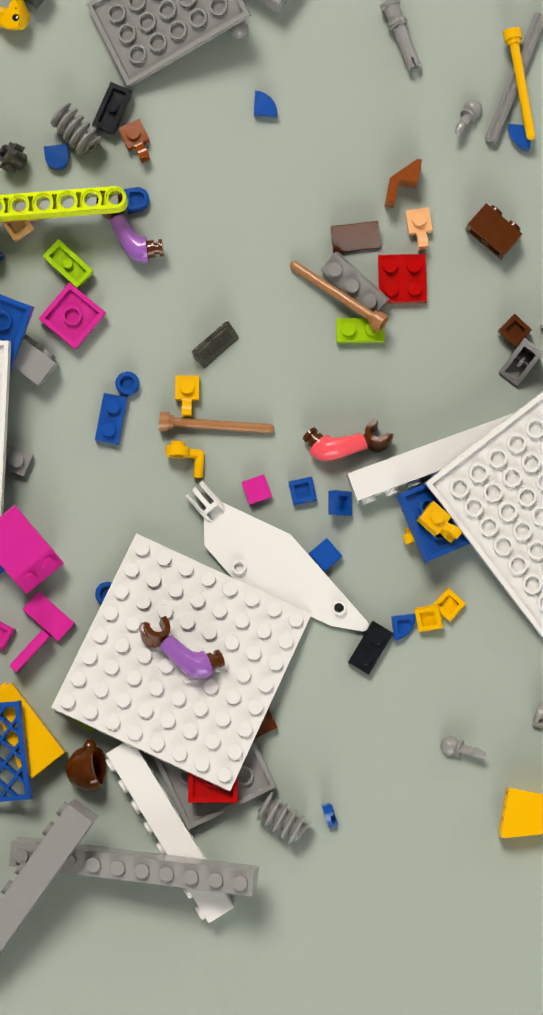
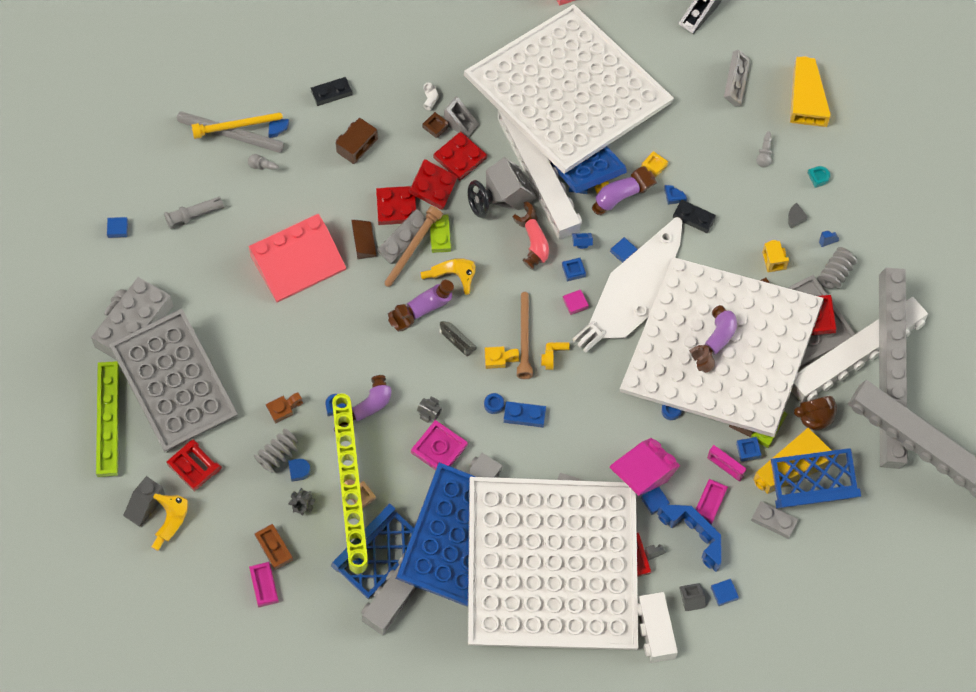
camera: 95 degrees left, 20 degrees down
(47, 679) = (748, 449): none -> blue plate
(48, 616) = (695, 453): dark pink tile -> none
(64, 30) = (189, 470): none -> red plate
(68, 264) = (394, 453): lime plate -> none
(112, 108) = (257, 425): black plate -> none
(119, 306) = (429, 409): none -> dark grey gear
(262, 307) = (430, 300): none -> piece
(264, 105) = (252, 311): blue tile -> none
(306, 352) = (462, 267): none -> yellow animal
(306, 742) = (775, 256): none -> yellow brick
(330, 156) = (297, 258): none -> coral slope
(364, 777) = (796, 216): none -> dark grey tile
(404, 556) = (618, 190): none -> medium lavender piece
(406, 177) = (312, 201): dark orange slope -> none
(411, 411) = (504, 187): none -> light grey piece
(419, 224) = (351, 194): light nougat plate -> none
(422, 814) = (819, 176): none -> teal tile
(426, 323) = (433, 184): none -> red plate
(429, 617) = (666, 175): yellow tile -> none
(436, 521) = (594, 163): yellow plate -> none
(470, 360) = (460, 156): none -> red plate

